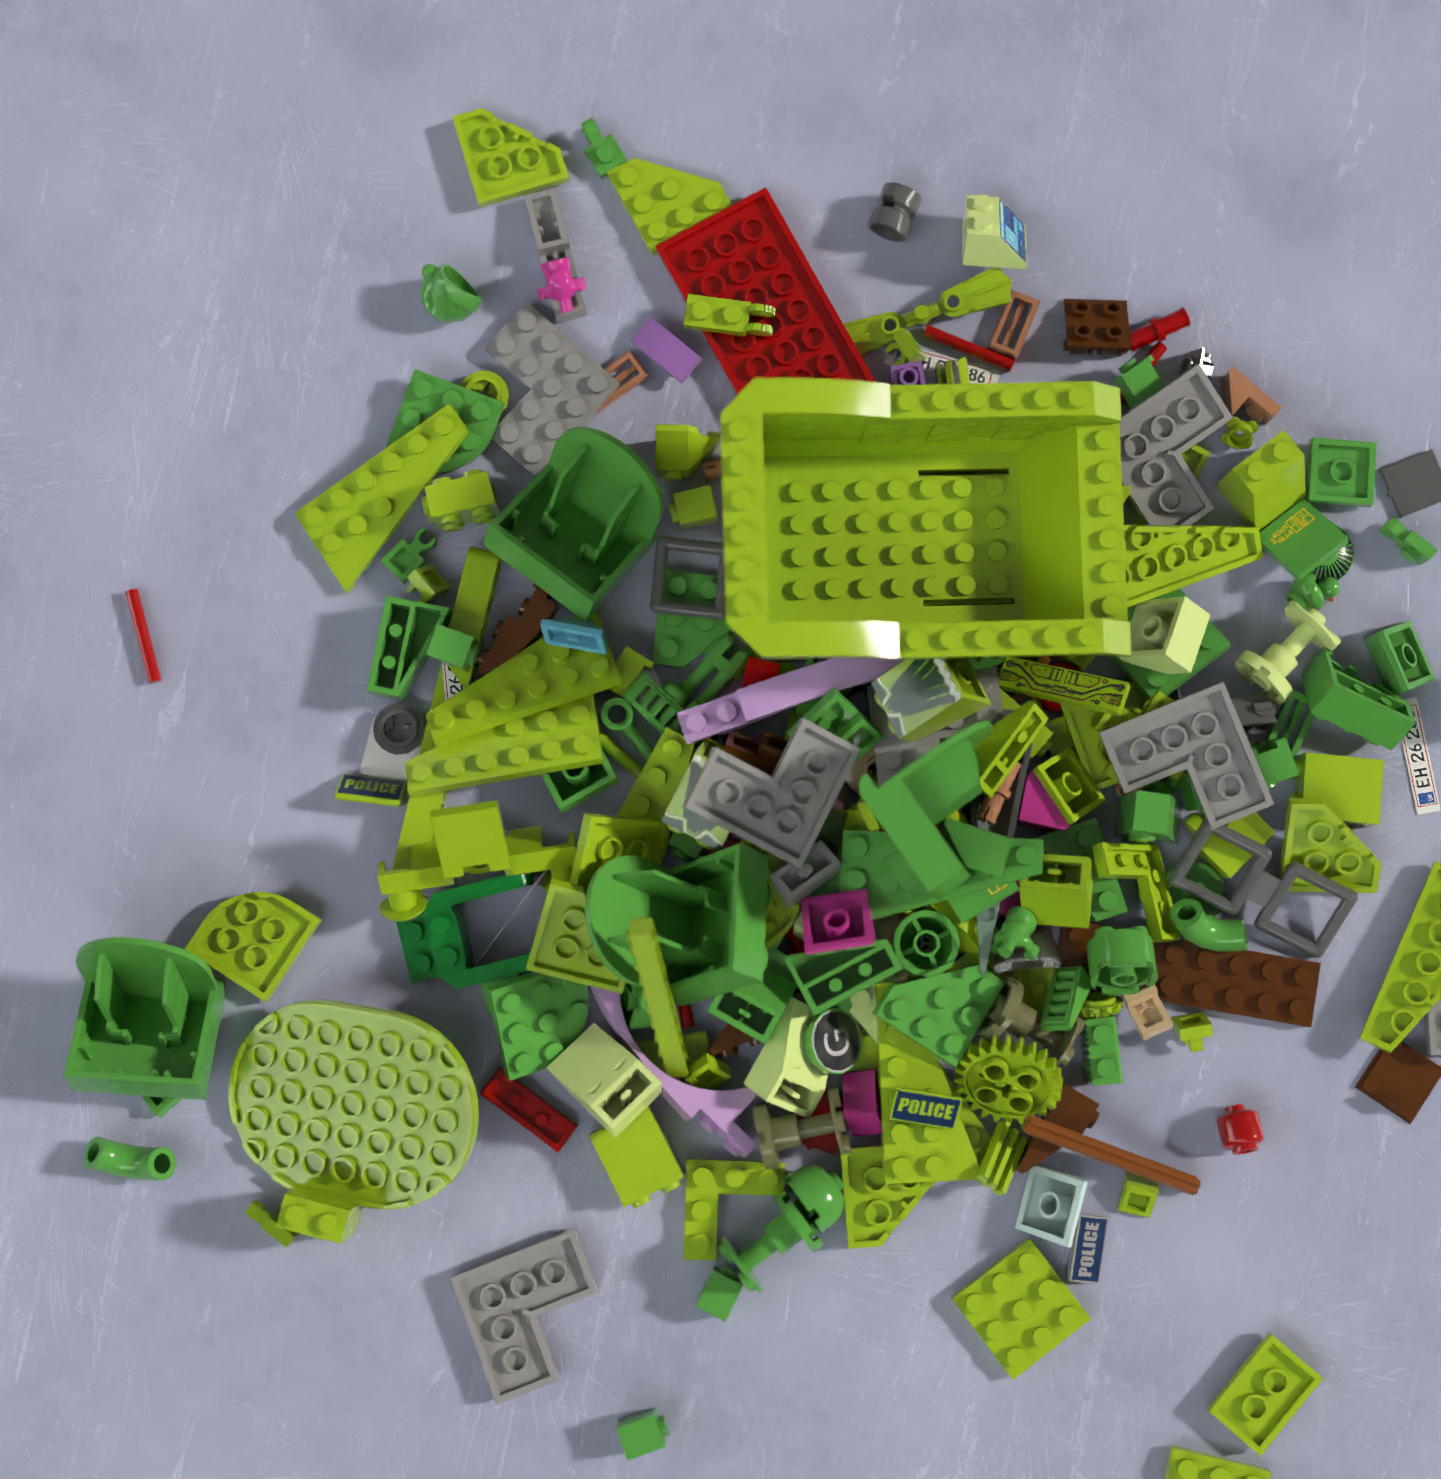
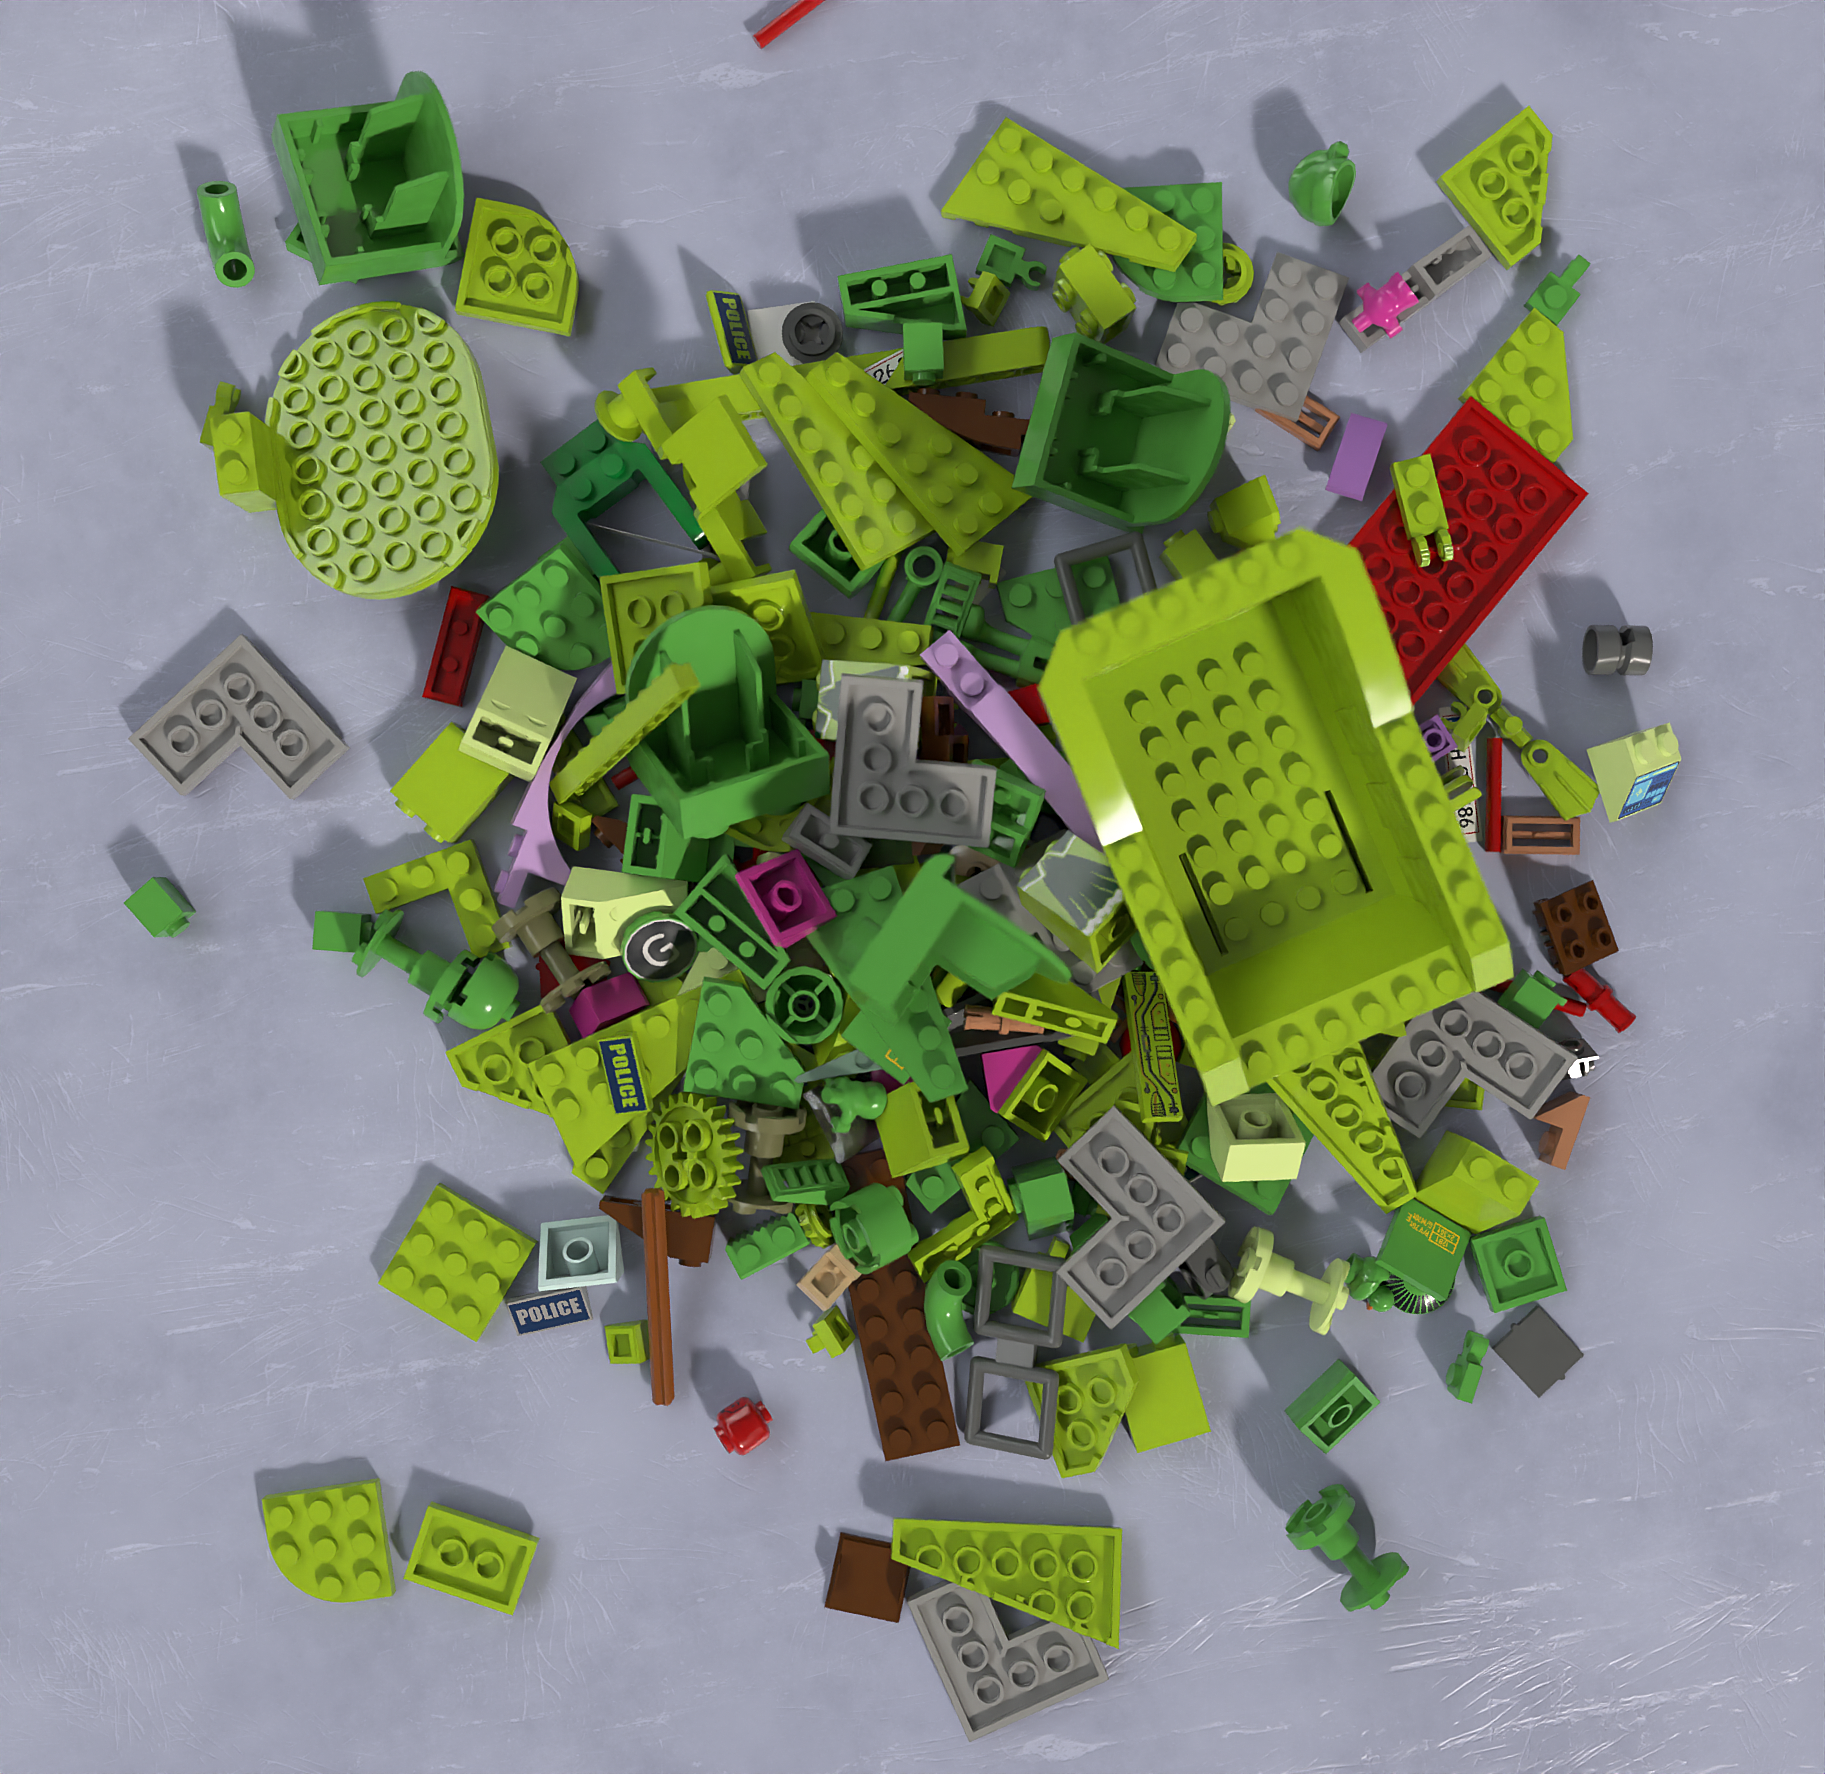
camera: 70 degrees right, 5 degrees up
(574, 634) = (992, 481): medium azure slope -> none
(980, 849) = (926, 1023): bright green slope -> none
(1005, 1161) = (606, 1184): lime tile -> none
(1243, 440) = (1507, 1134): lime plate -> none
(1355, 705) = (1261, 1375): bright green wedge -> none
(1419, 764) = (1232, 1465): white sticker -> none

